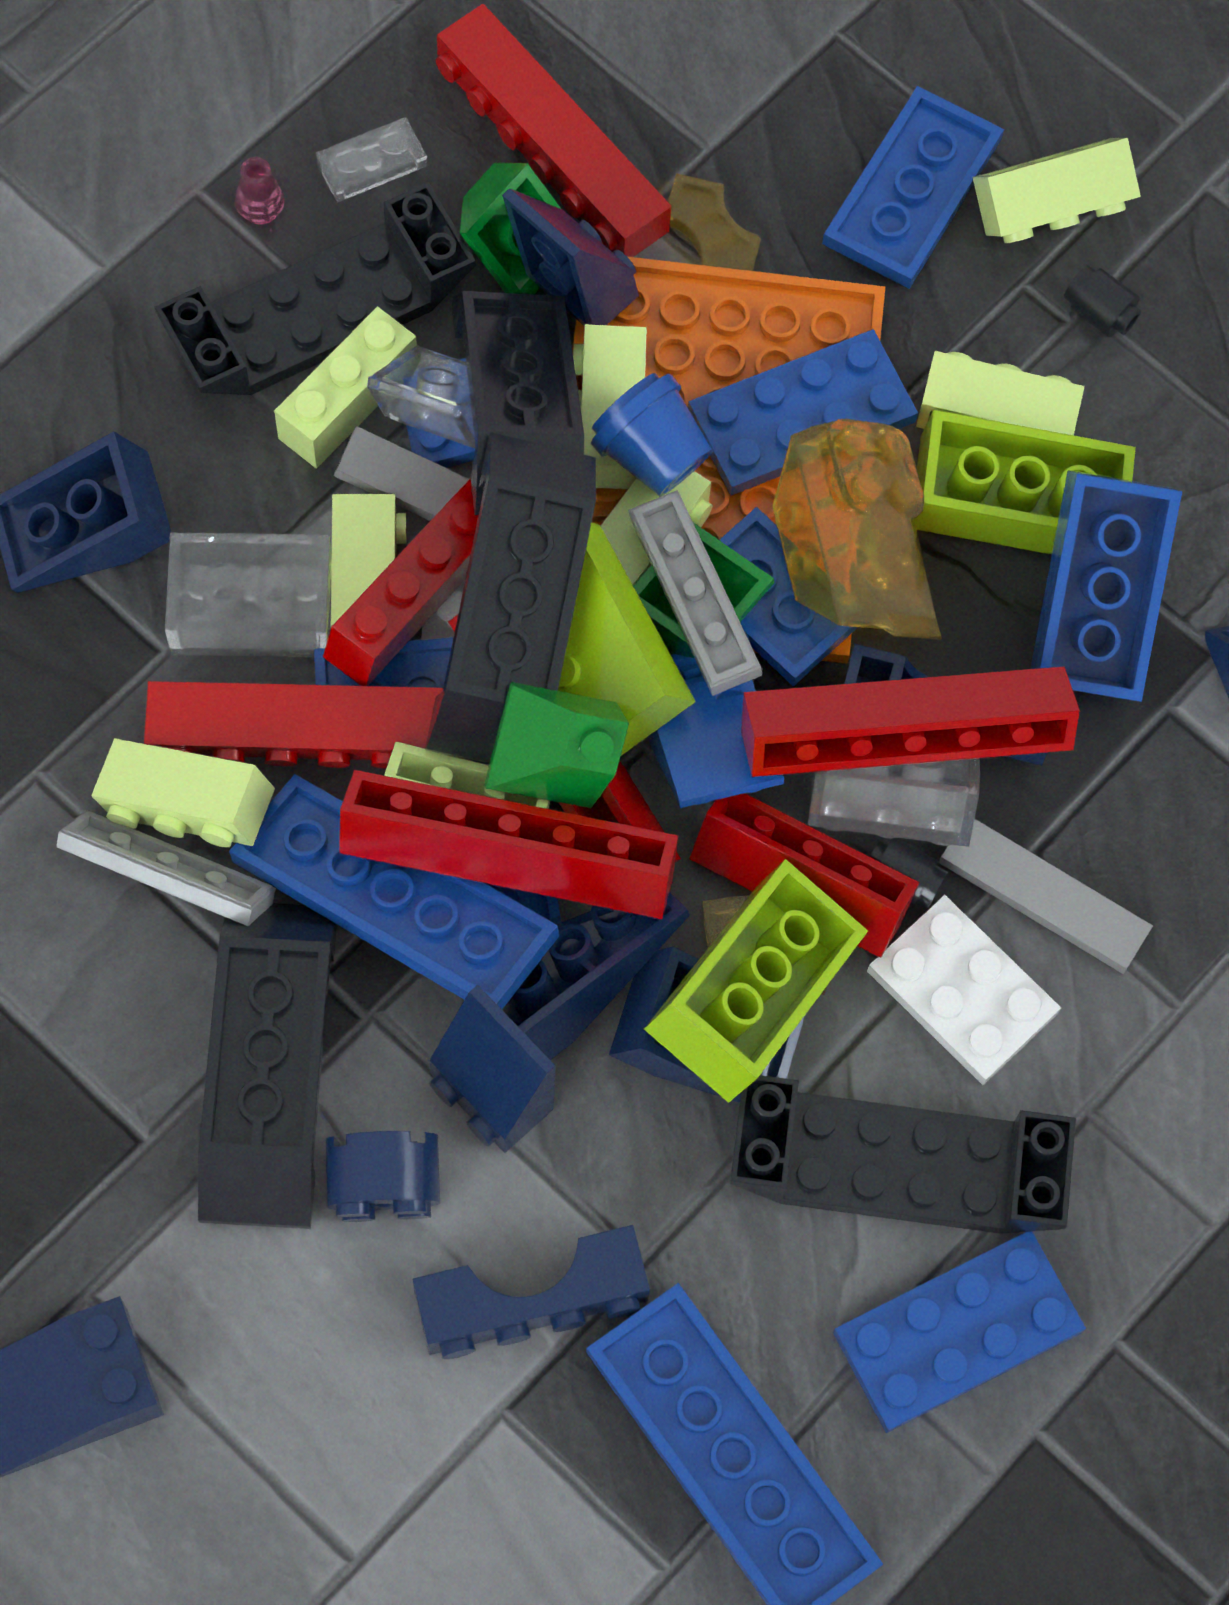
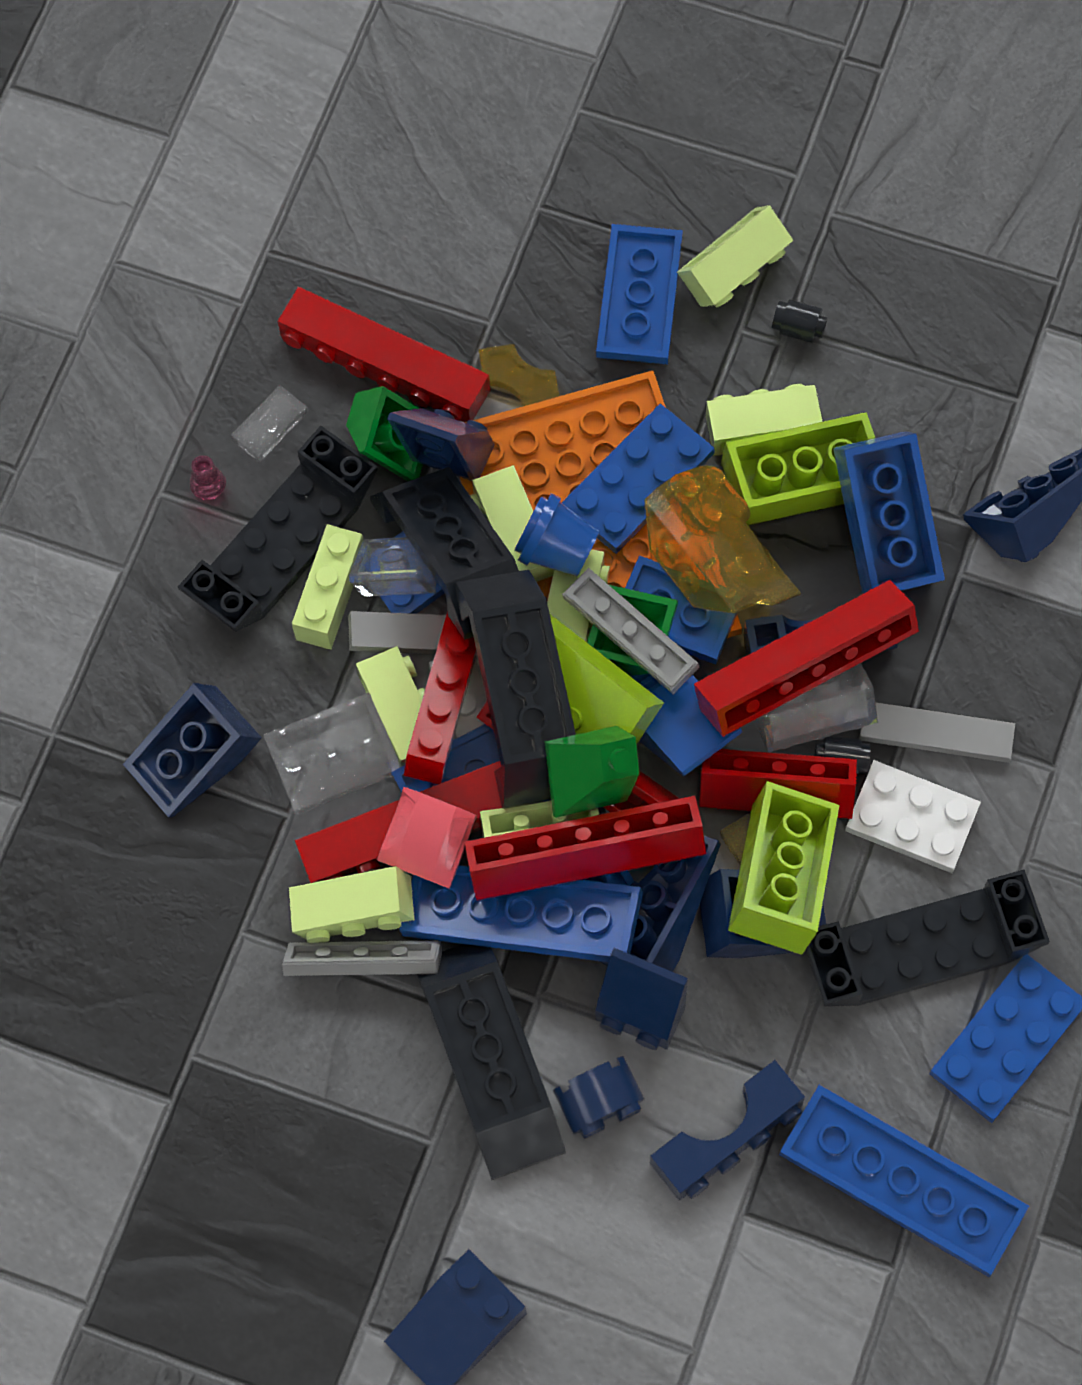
camera: 15 degrees left, 0 degrees up
(312, 747) = (427, 837): none -> coral slope

